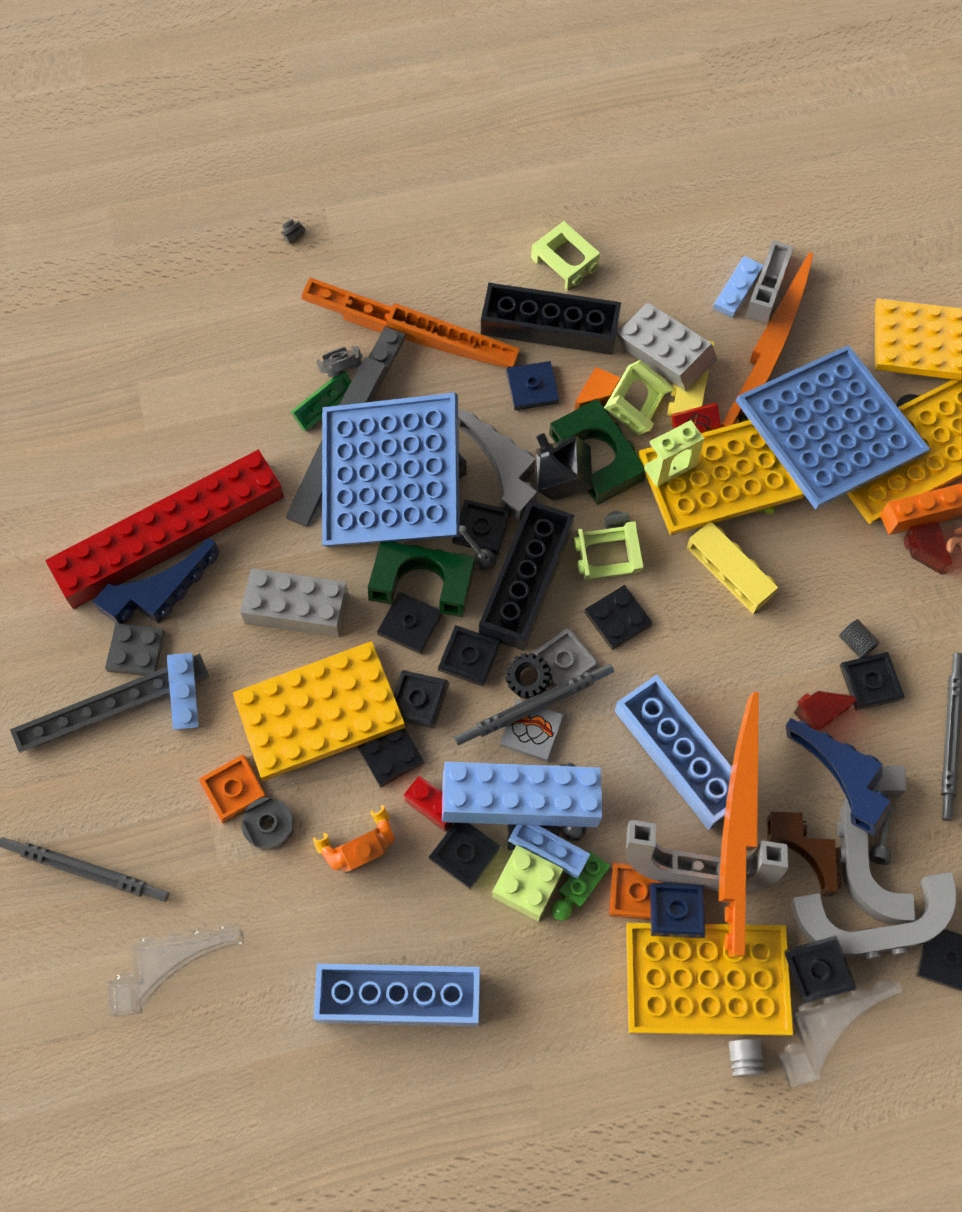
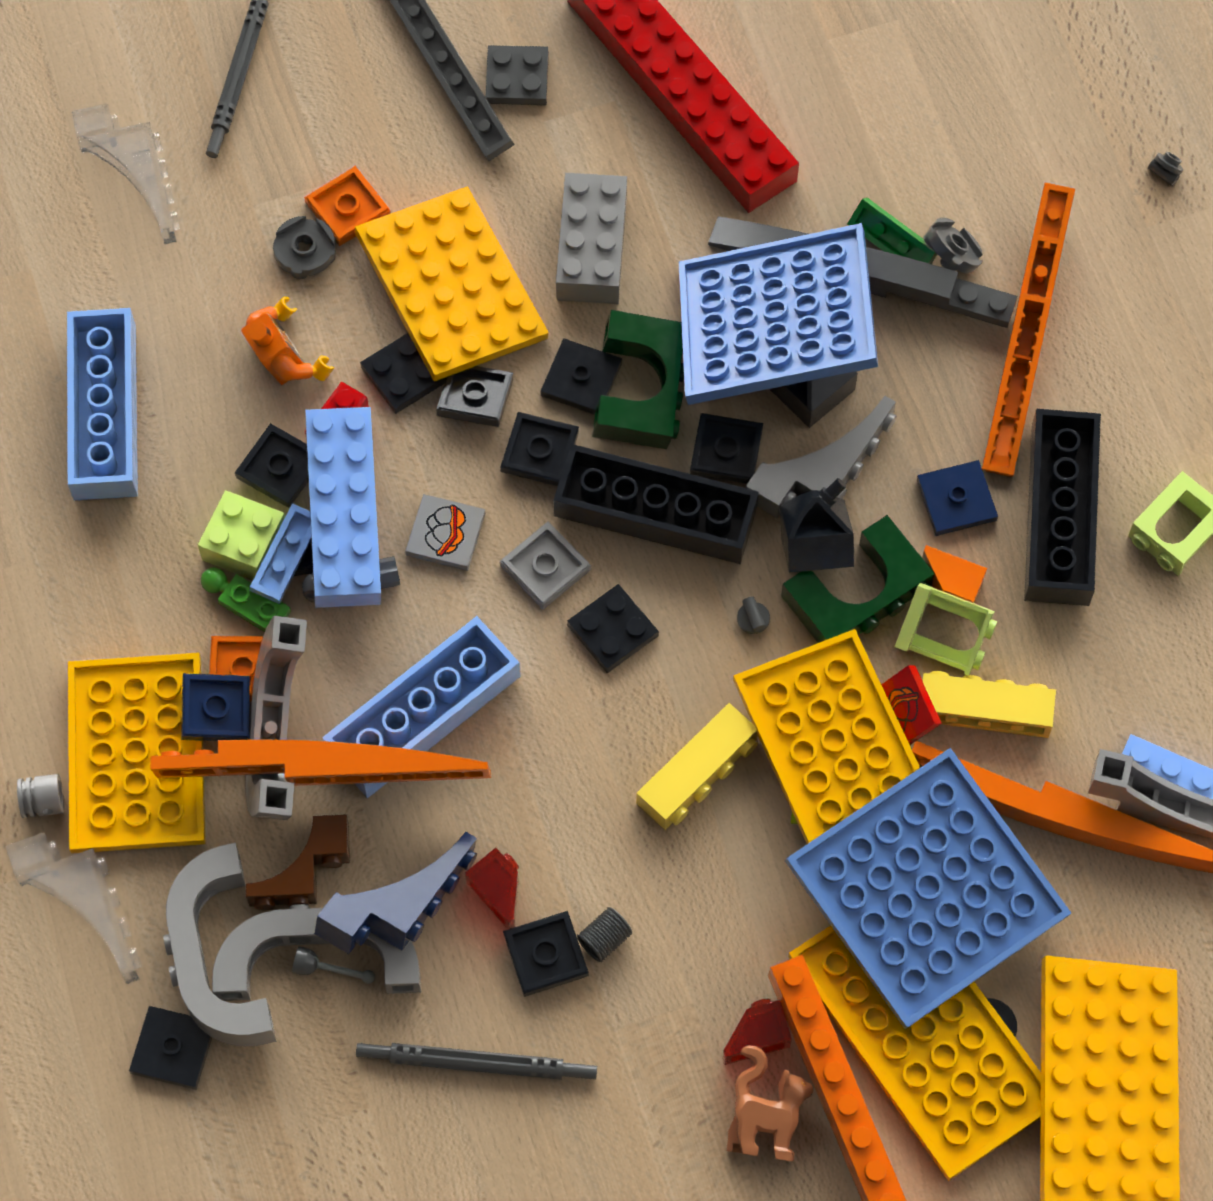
camera: 85 degrees right, 0 degrees up
(157, 593) = (592, 88): dark blue arch -> none
(182, 691) = (461, 130): light blue plate -> none
(481, 553) = (680, 454): hinge -> none
(521, 663) = (508, 505): black tyre -> none
(533, 704) = (476, 528): dark grey axle -> none
(626, 533) = (717, 633): yellowish green panel -> none
(667, 346) = (1028, 656): light grey brick -> none
(673, 456) = (834, 648): yellowish green panel -> none
(820, 969) = (146, 875): black plate -> none

